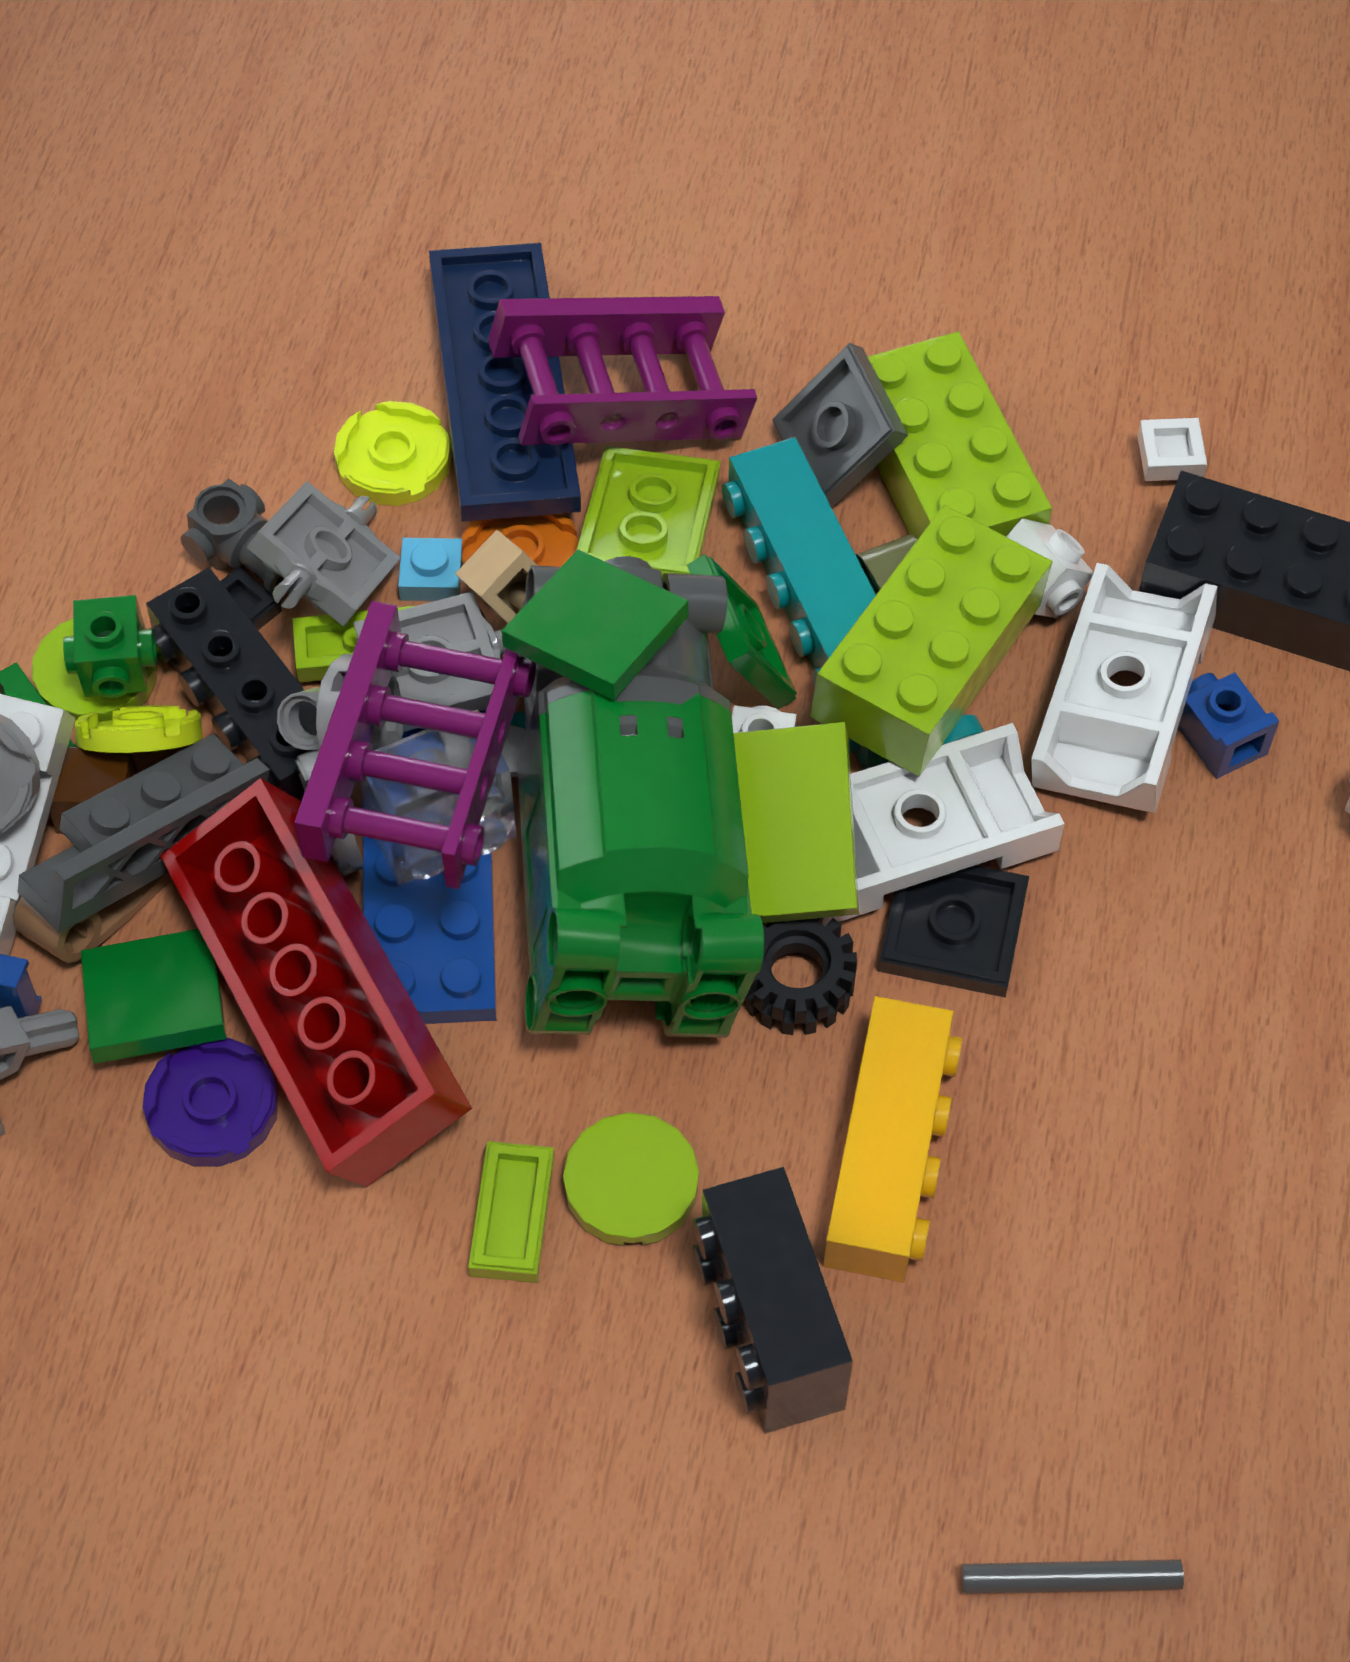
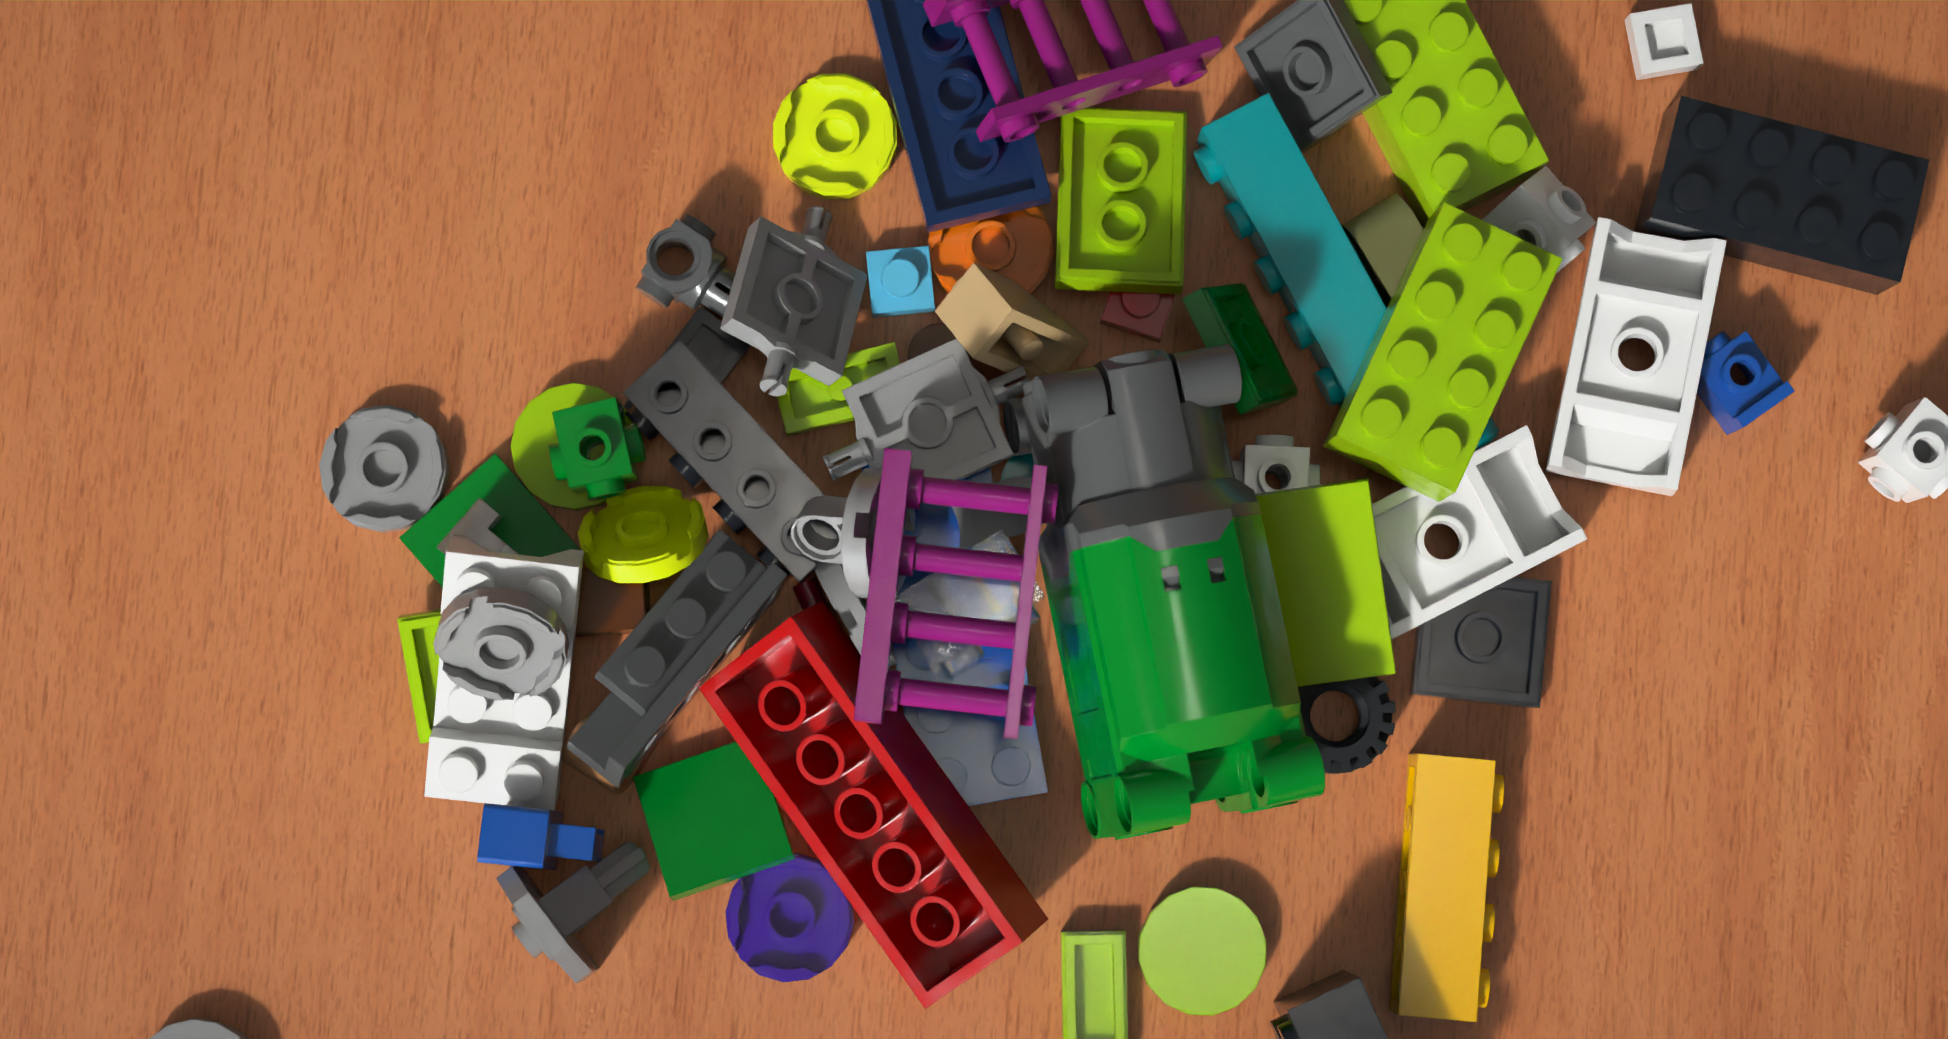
camera: 10 degrees left, 25 degrees up
(595, 624) = (1121, 462): green tile -> none

